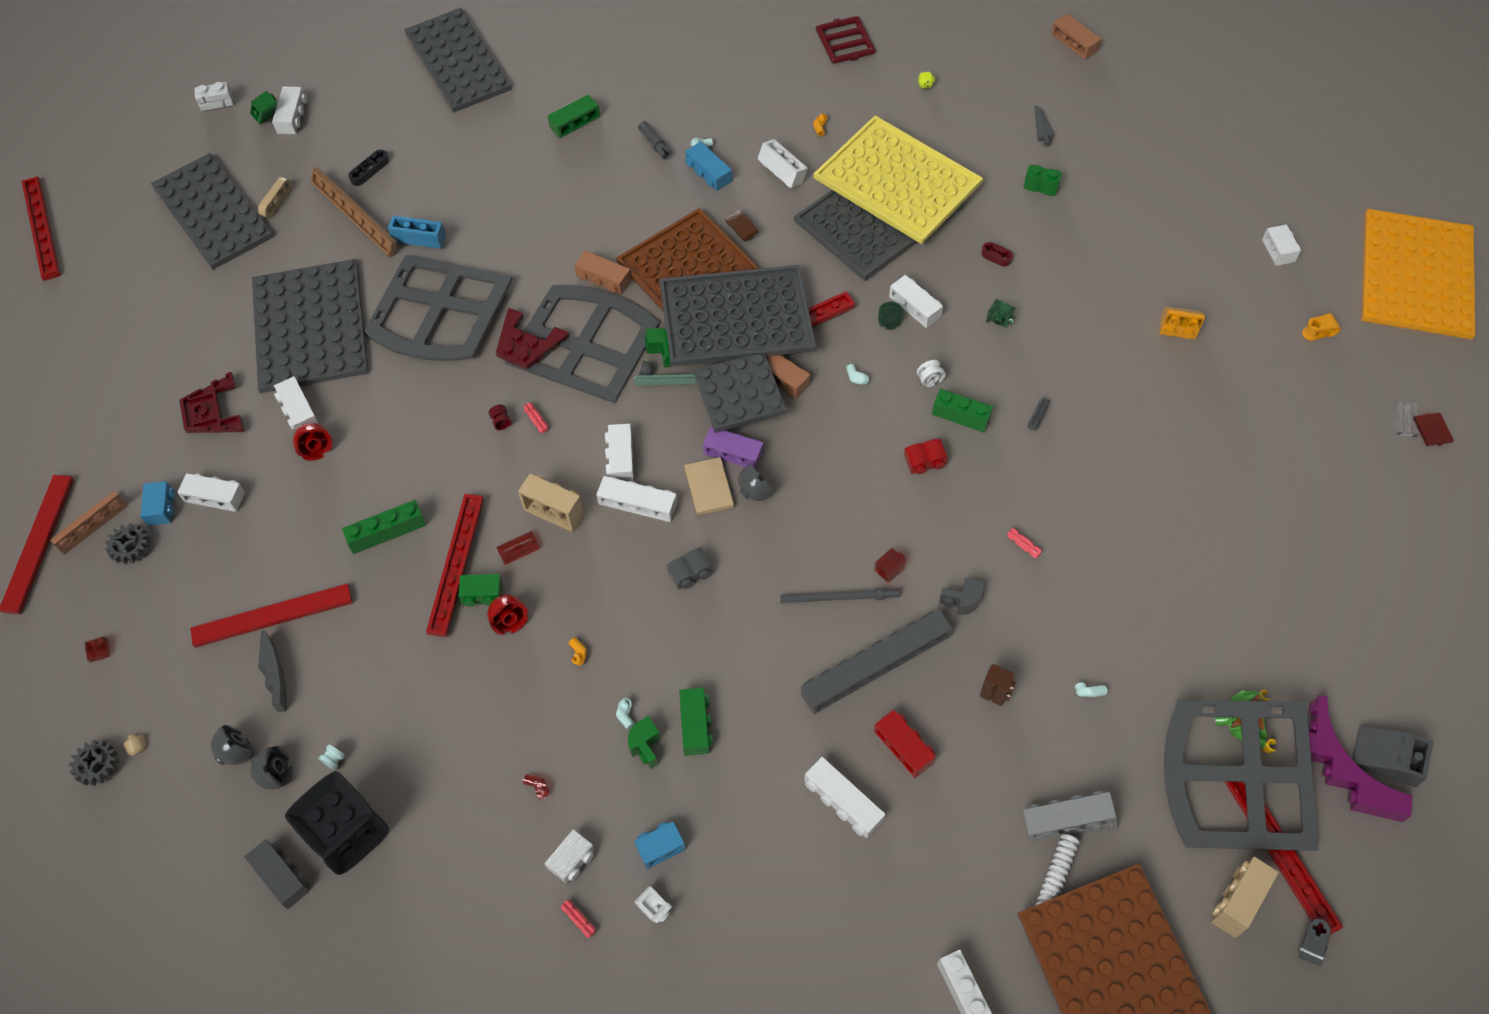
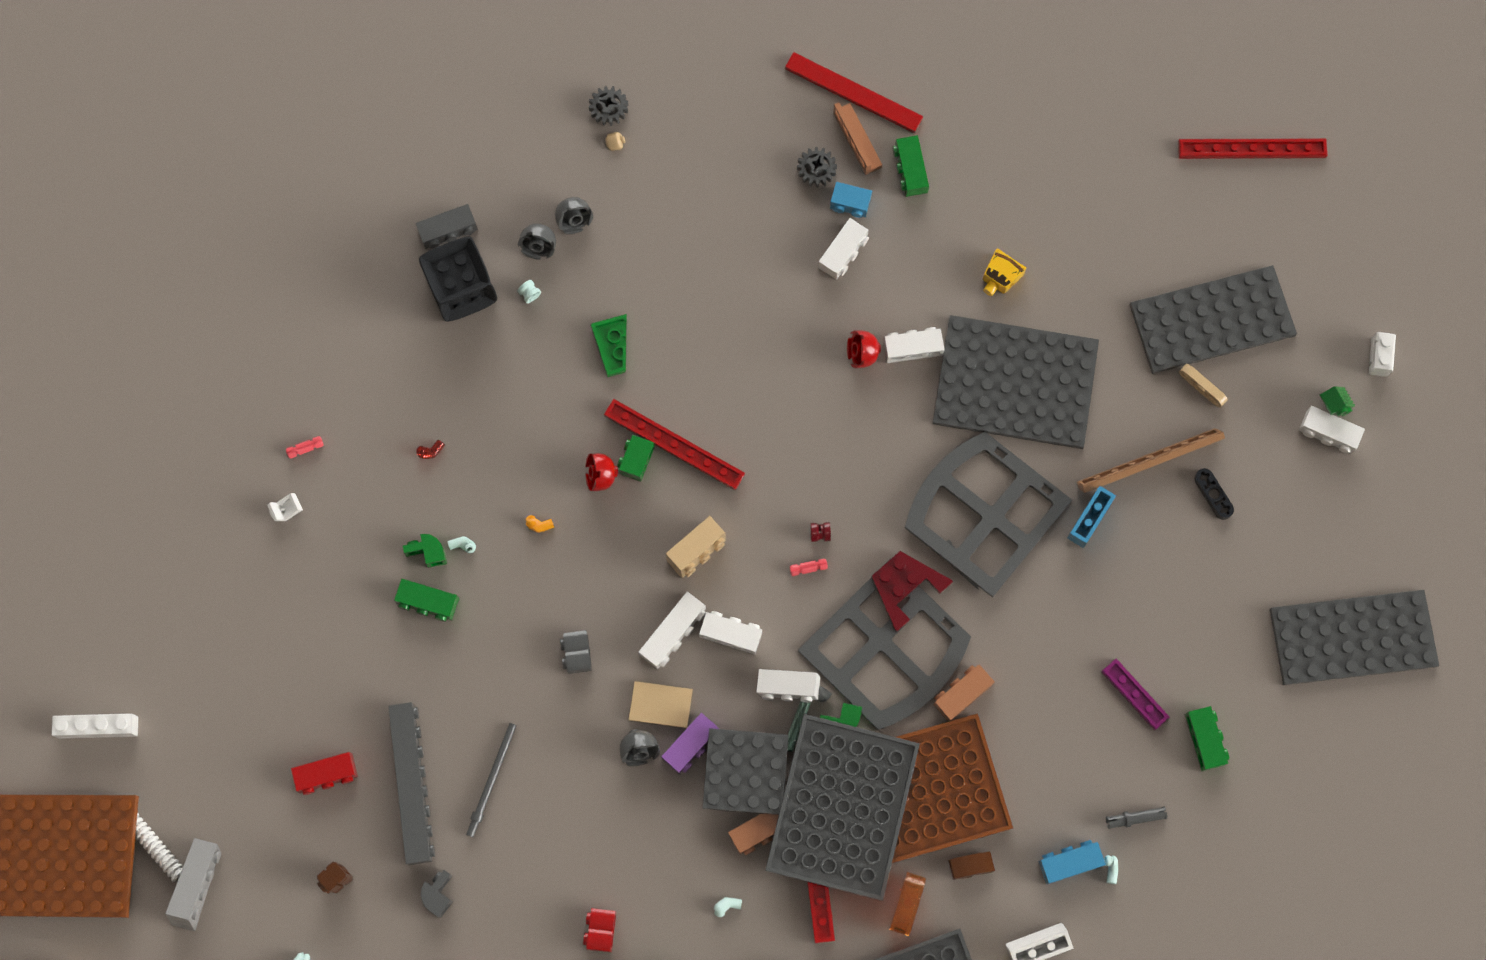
camera: 110 degrees right, 15 degrees up
(97, 649) = (720, 125): clear red tile -> none
(109, 465) = (911, 166): none -> green brick
(202, 411) = (944, 258): dark red wing -> none
(205, 363) = (1002, 273): none -> yellow torso
(270, 615) = (691, 275): red tile -> none
(271, 667) = (637, 263): dark grey slope -> none
(365, 660) = (611, 343): none -> green wing
(384, 526) = (738, 391): green brick -> none
(520, 550) = (669, 522): clear red tile -> none
(556, 170) = (1135, 694): none -> magenta tile
(570, 857) = (355, 455): white brick -> none
(650, 390) = (788, 685): none -> white brick
(659, 844) = (332, 531): dark azure brick -> none
(792, 251) = (907, 903): none -> clear orange brick
(844, 798) = (301, 699): white brick -> none
(890, 565) = (499, 840): clear red brick -> none

